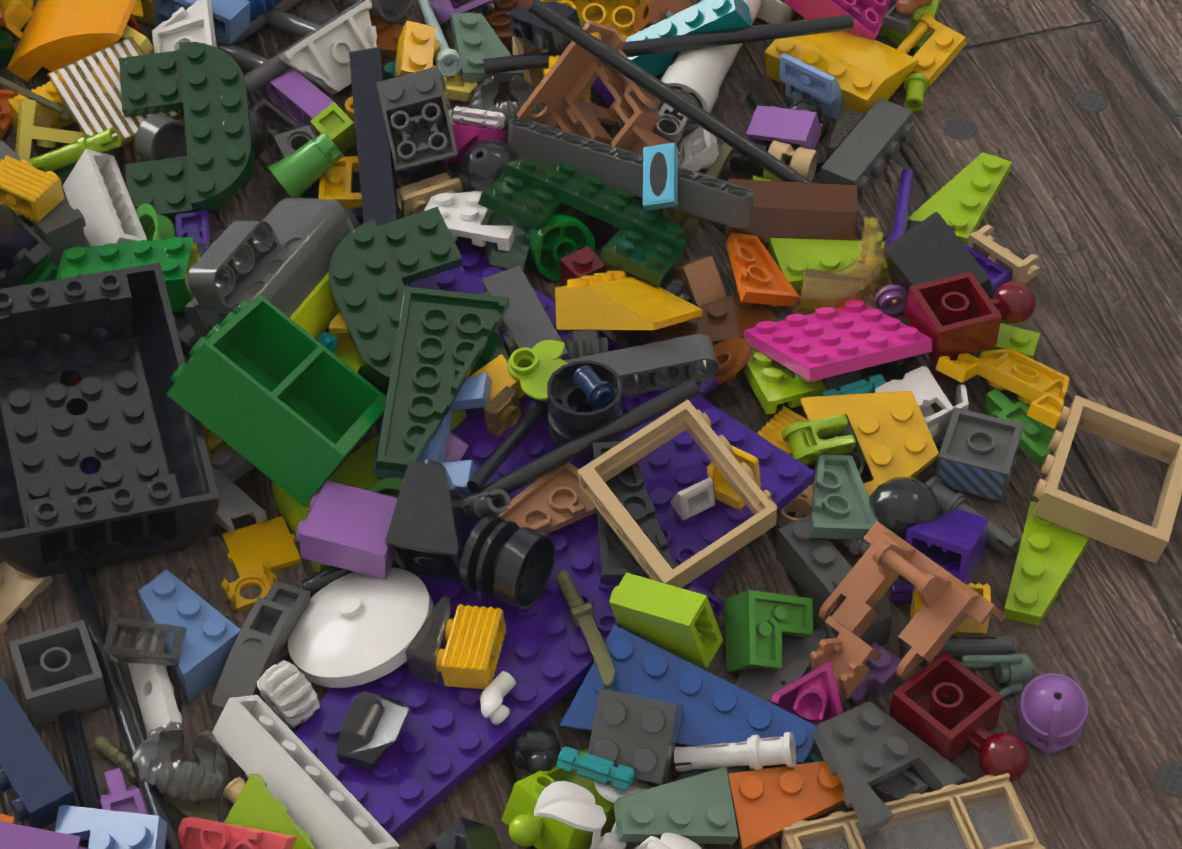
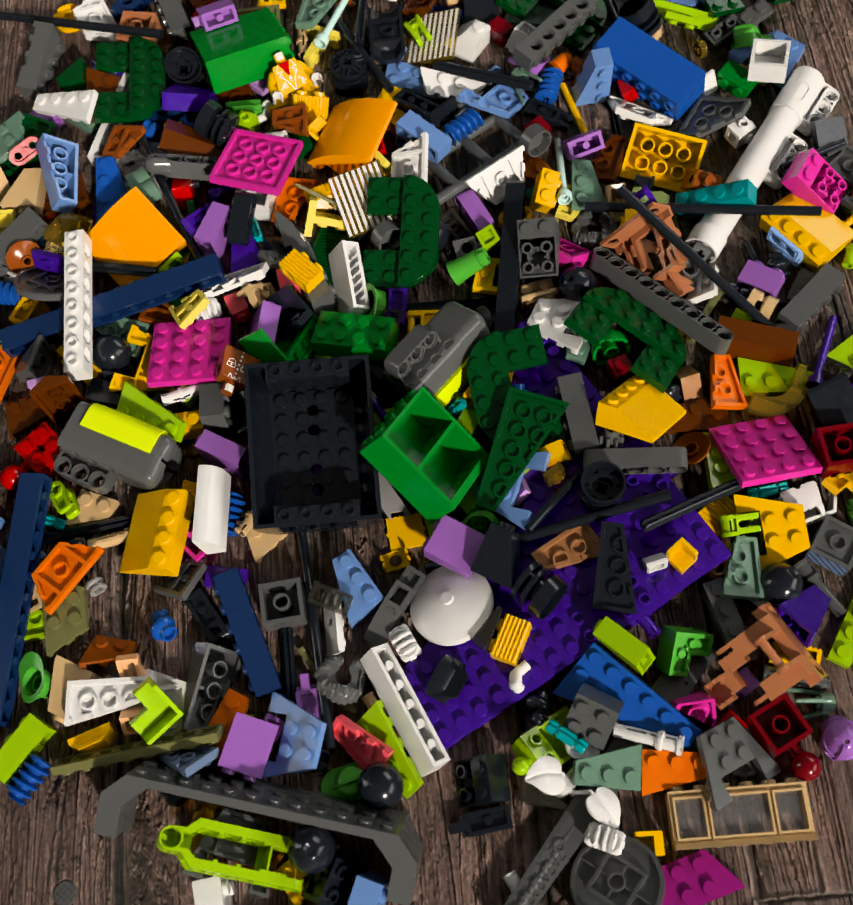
camera: 20 degrees right, 20 degrees up
(72, 152) = (337, 236): lime pin -> none
(478, 117) = (576, 240): white axle -> none
(486, 504) = (533, 550): dark grey pin -> none
(536, 32) = (631, 181): black slope -> none
(542, 362) = (583, 457): lime plate -> none
(583, 617) = (576, 631): olive sword -> none
(598, 392) = (611, 487): dark blue pin -> none
(660, 176) = (677, 314): medium azure tile -> none
(719, 451) = (675, 547): tan window -> none
(749, 407) = (689, 505): none -> black axle
(891, 299) = (804, 416): medium lavender plate -> none

